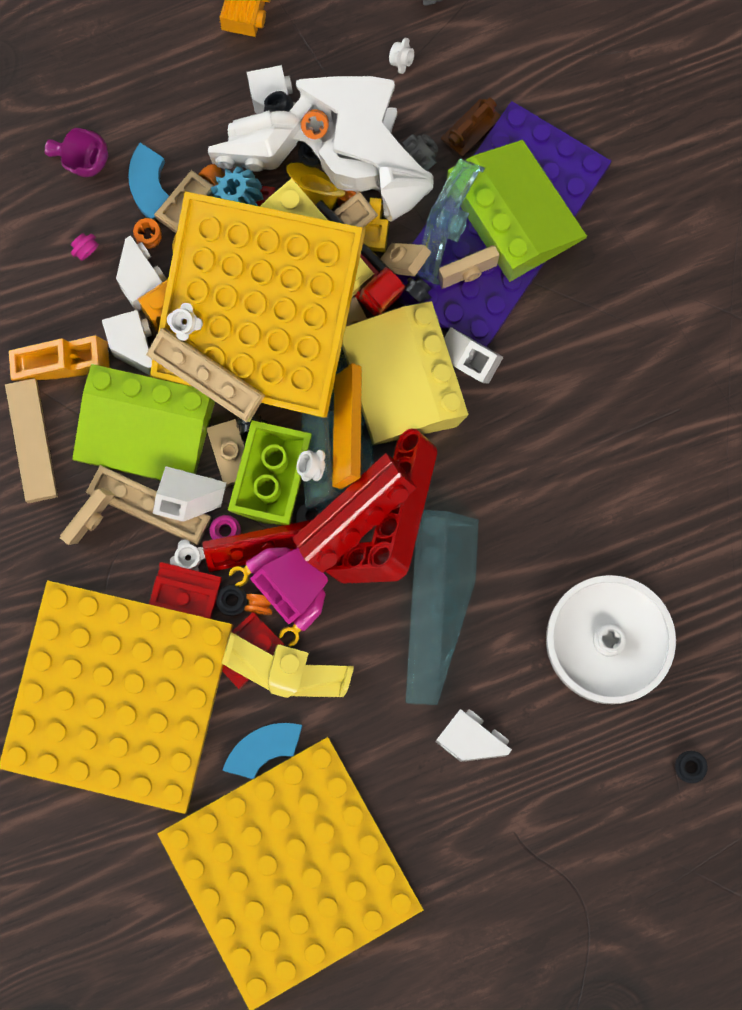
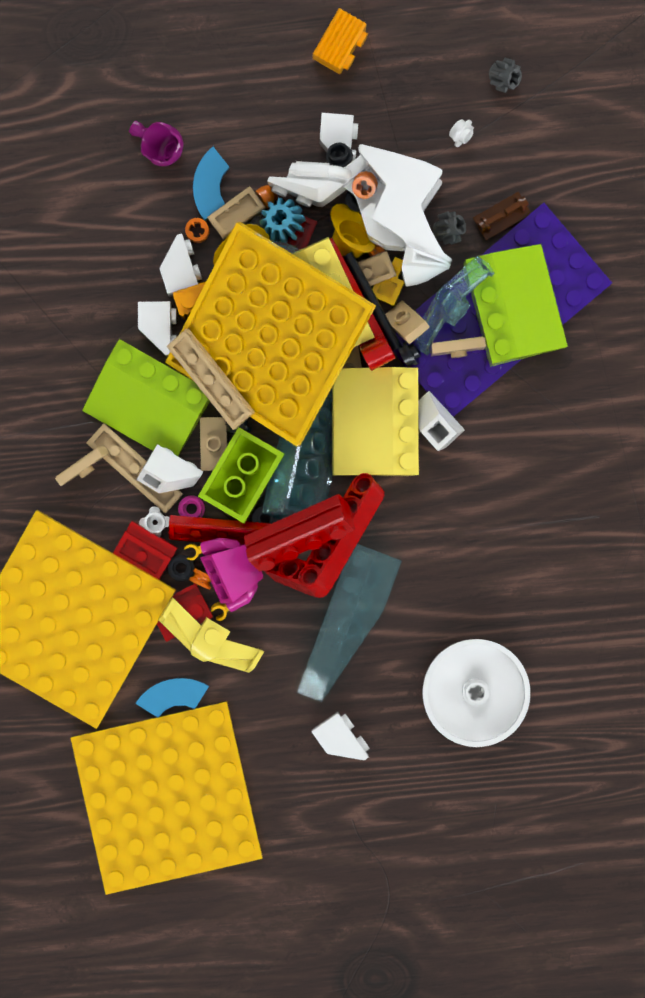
camera: 15 degrees right, 10 degrees up
(31, 440) = (52, 384): tan tile -> none
(58, 359) = (93, 322): light orange slope -> none
(84, 246) = (140, 227): dark pink plate -> none
(175, 321) = (198, 330): white plate -> none
(311, 465) = (276, 482): white plate -> none
(347, 426) = (314, 457): light orange tile -> none
(700, 763) = (508, 819): black plate -> none

